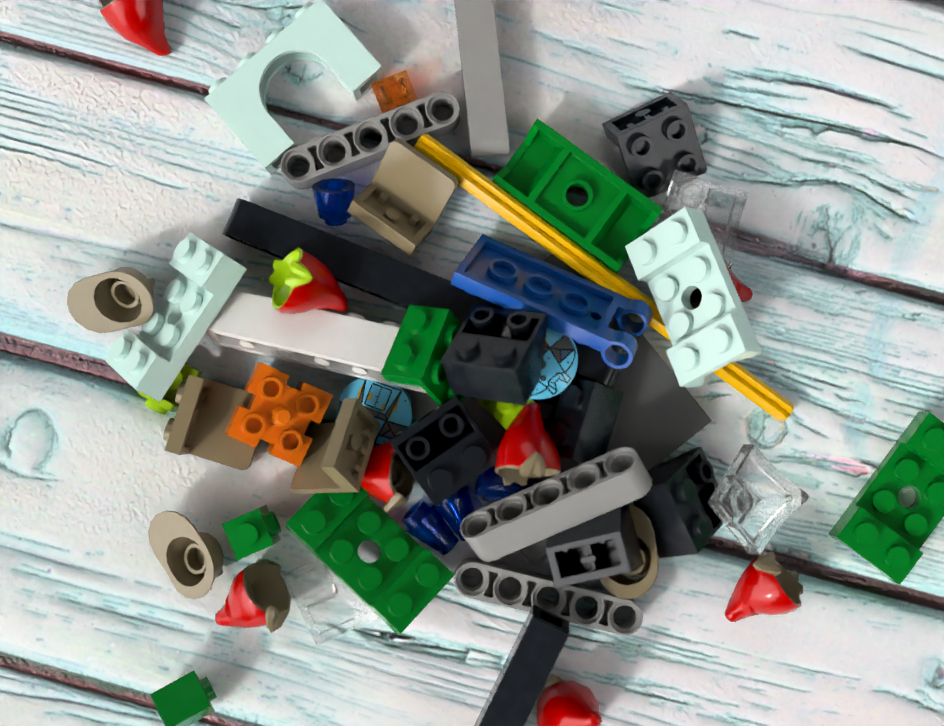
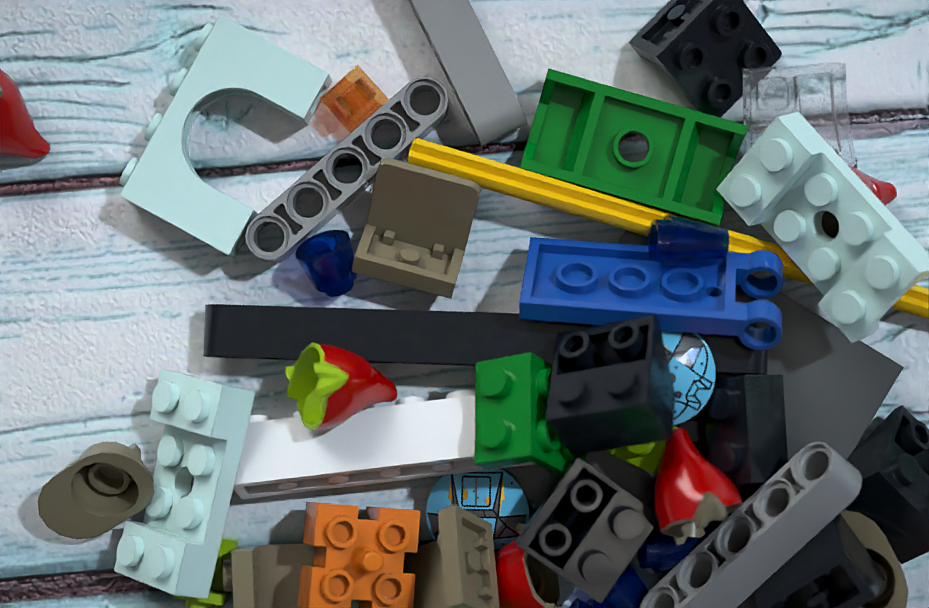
camera: 25 degrees left, 0 degrees up
(588, 273) = (685, 241): none -> clear blue cone

